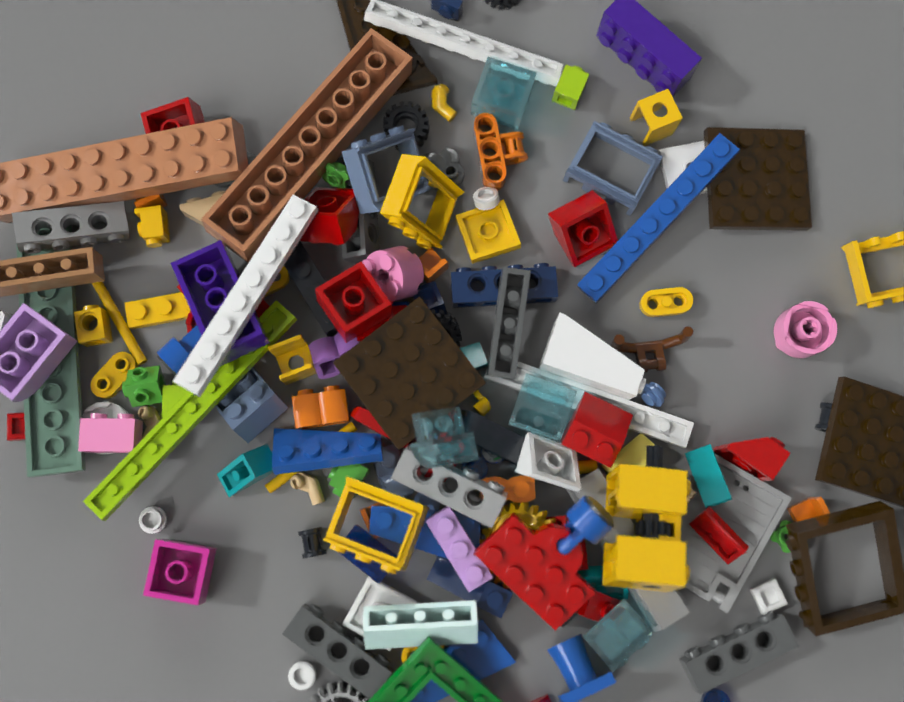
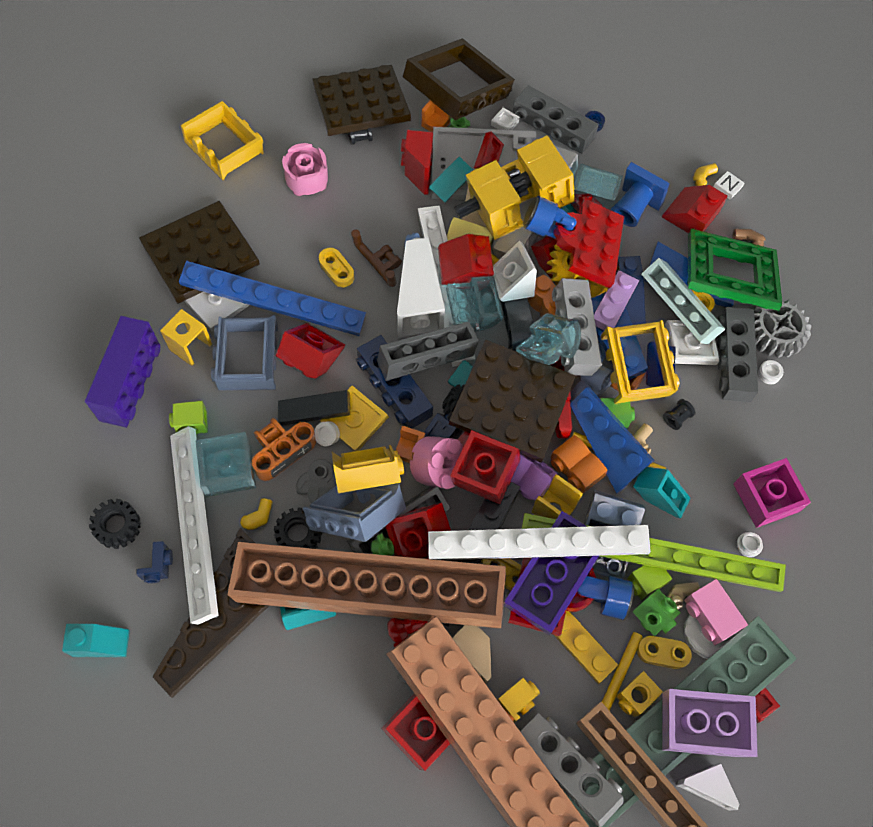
camera: 120 degrees left, 15 degrees down
(518, 199) = (314, 407): none -> black tile

